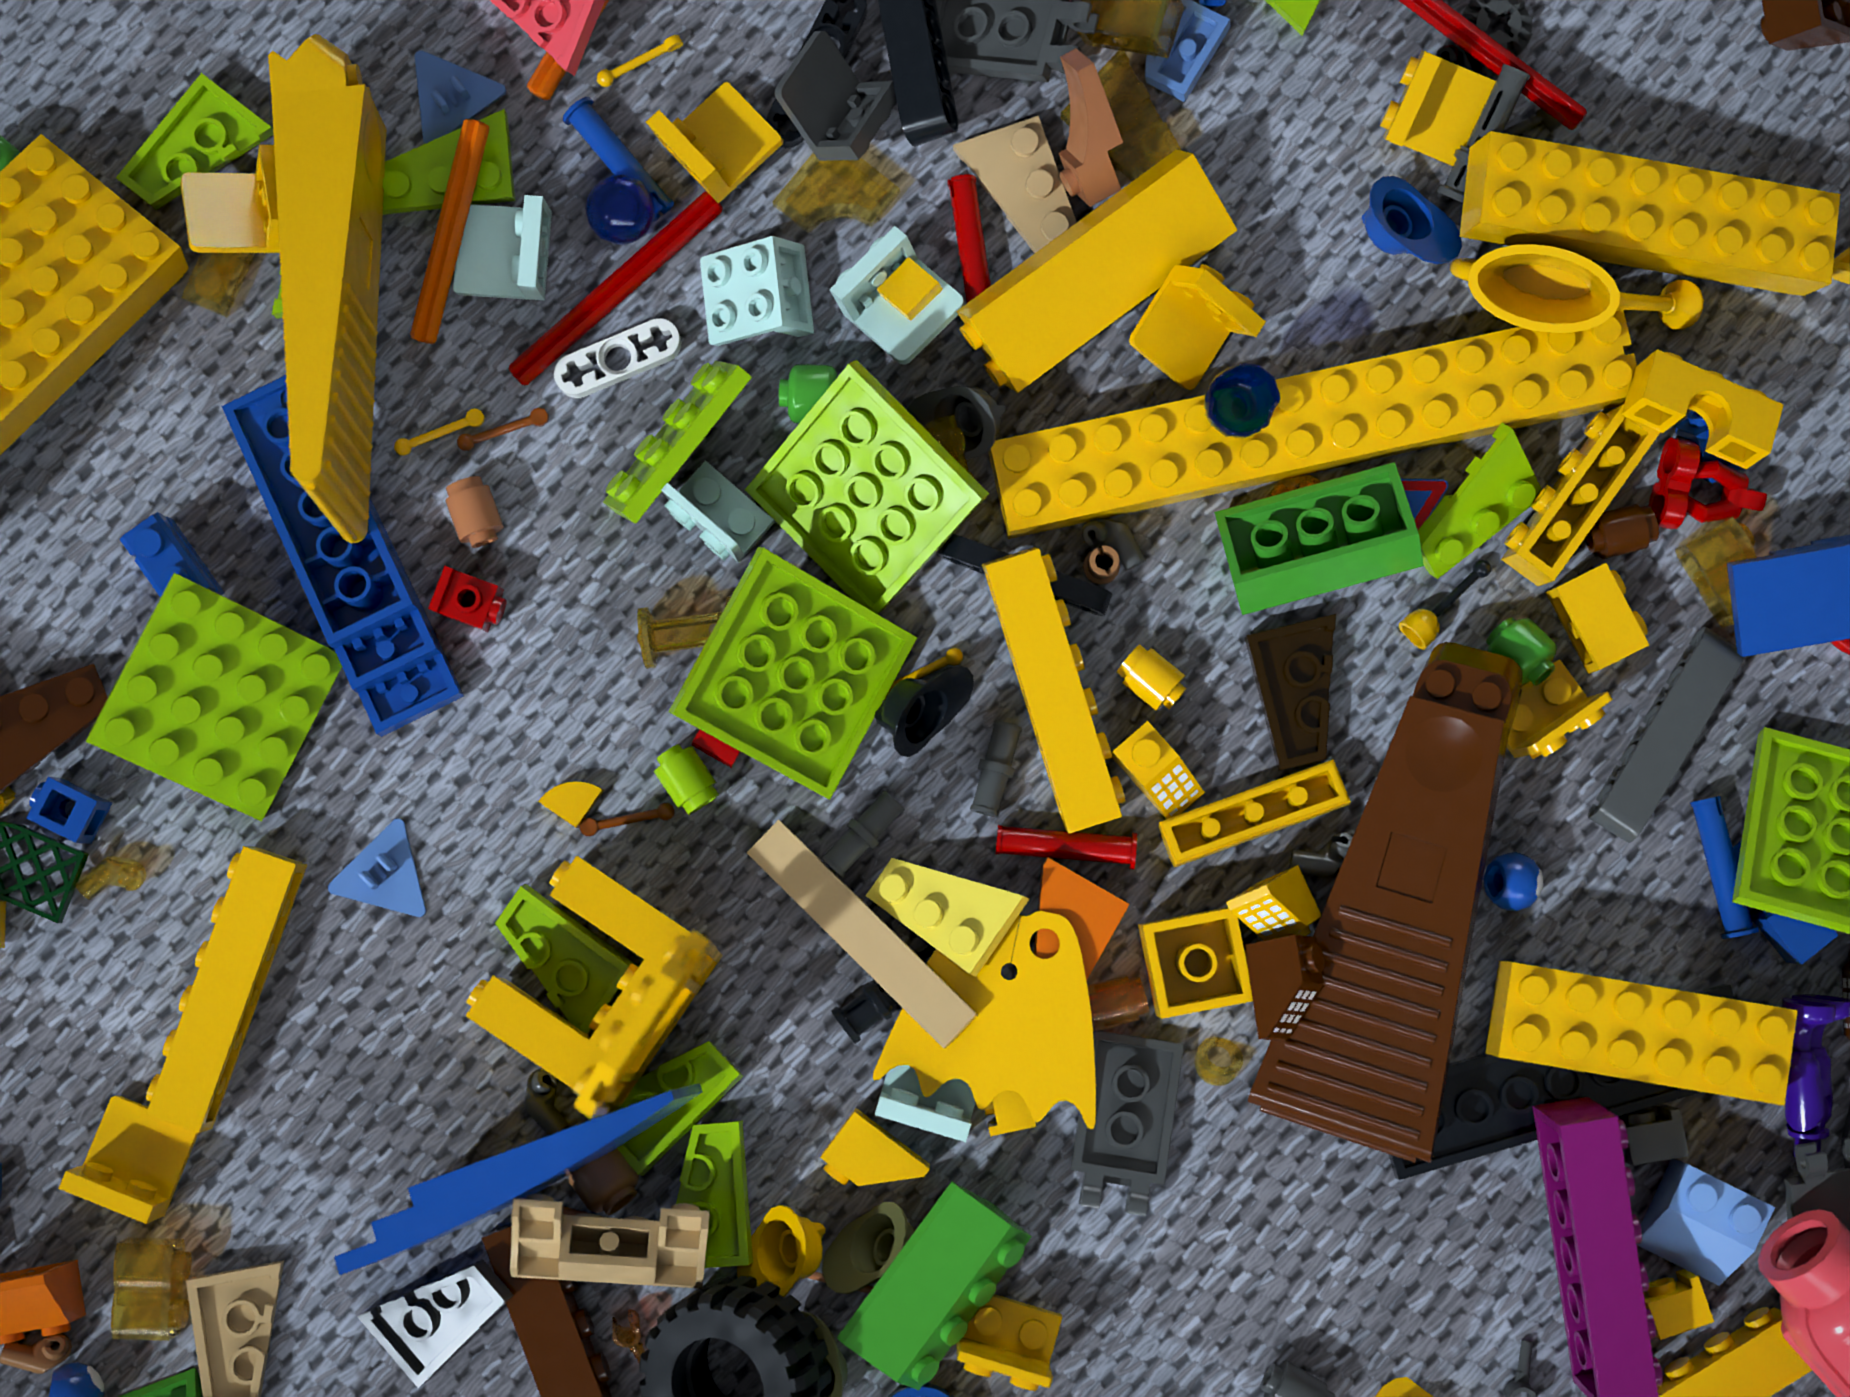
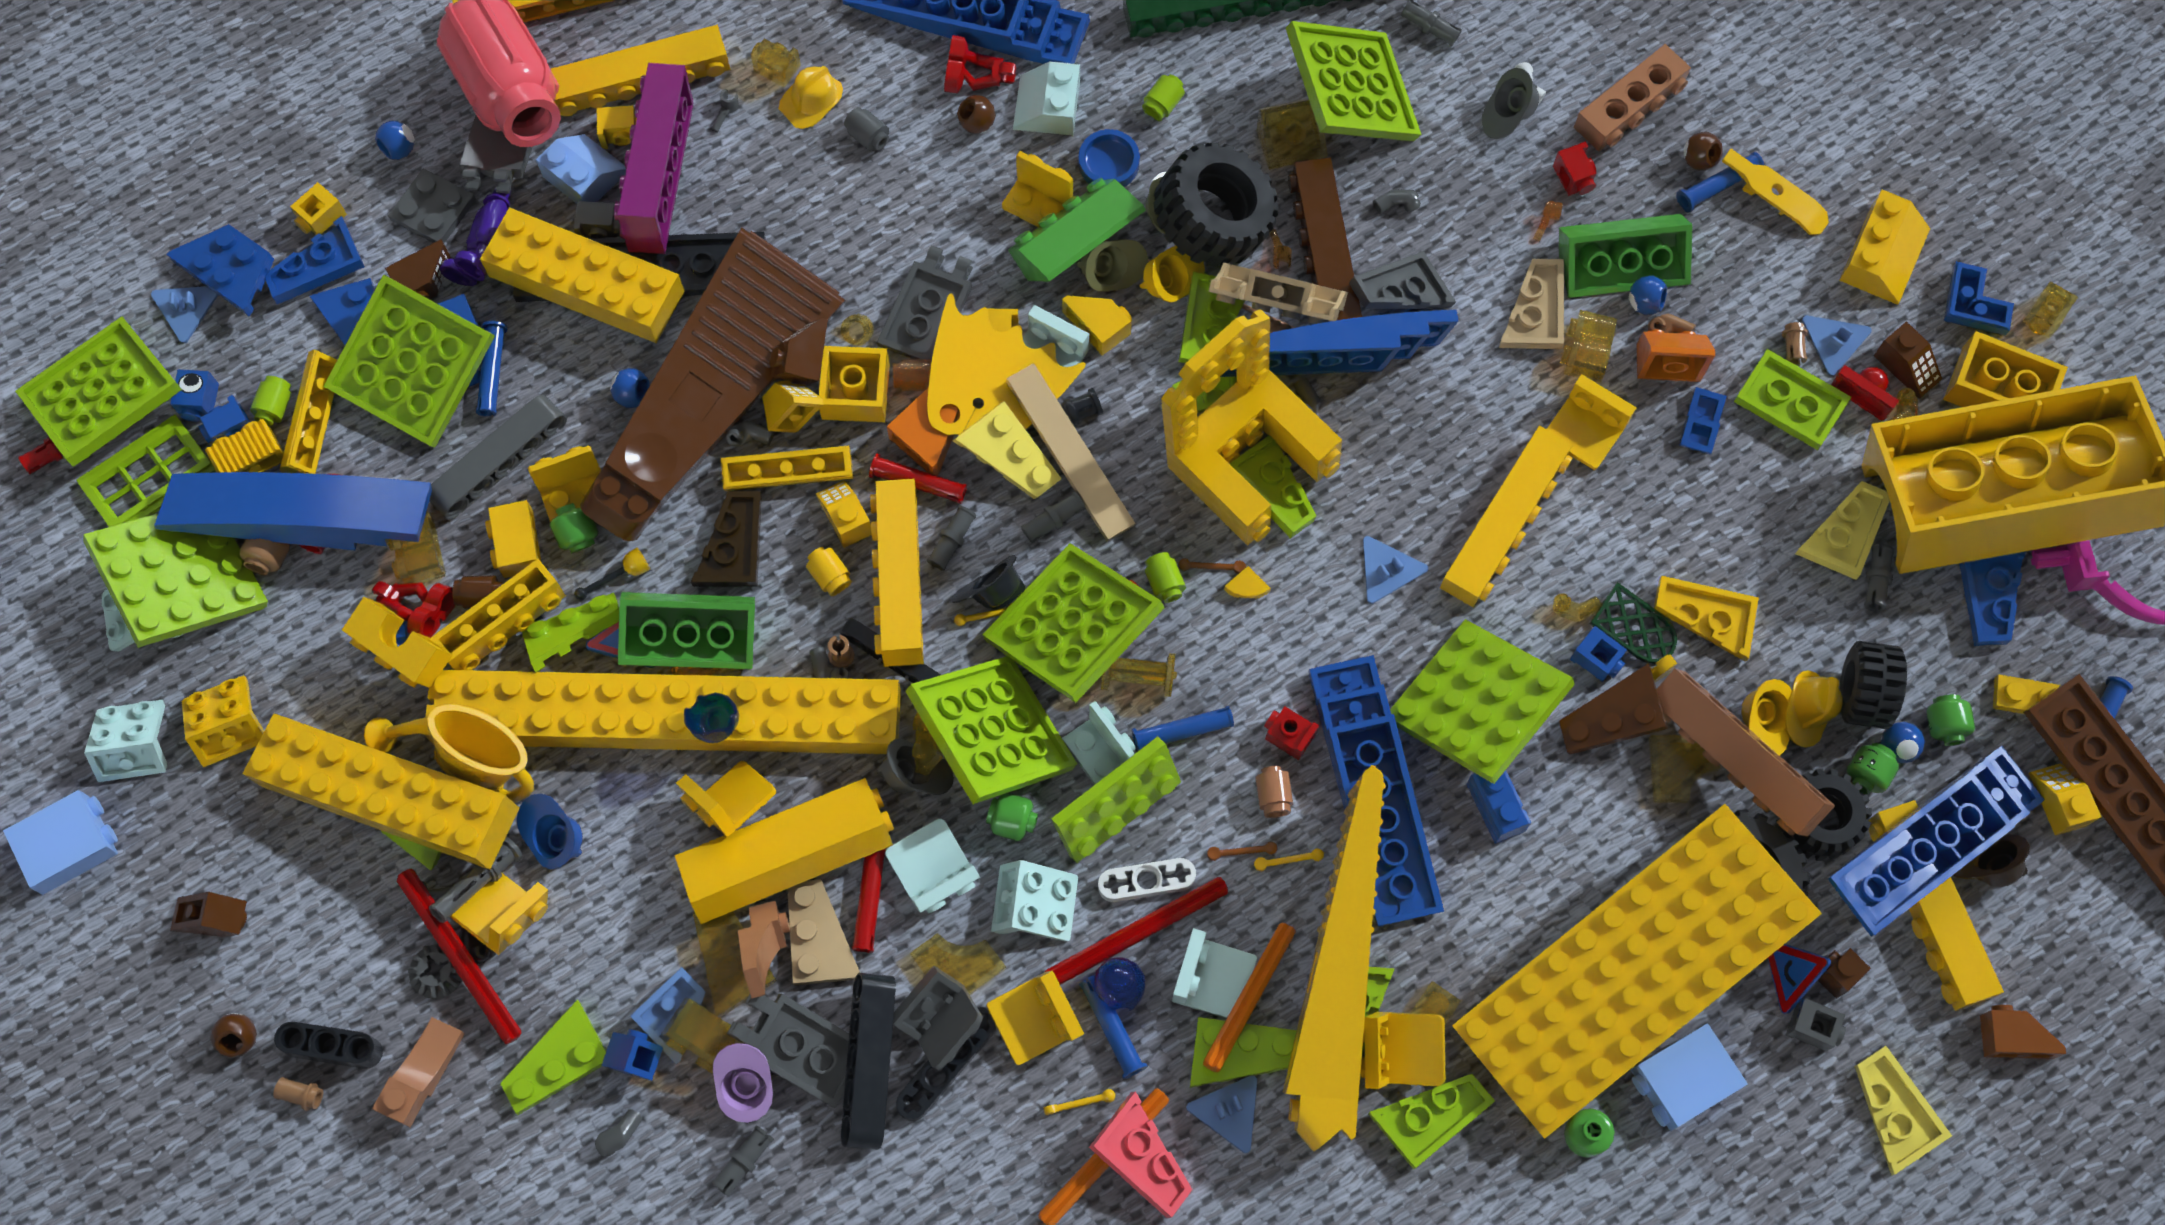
camera: 170 degrees left, 15 degrees down
(615, 572) = (1184, 727): none -> blue pin
(909, 289) = (922, 872): yellow tile -> none

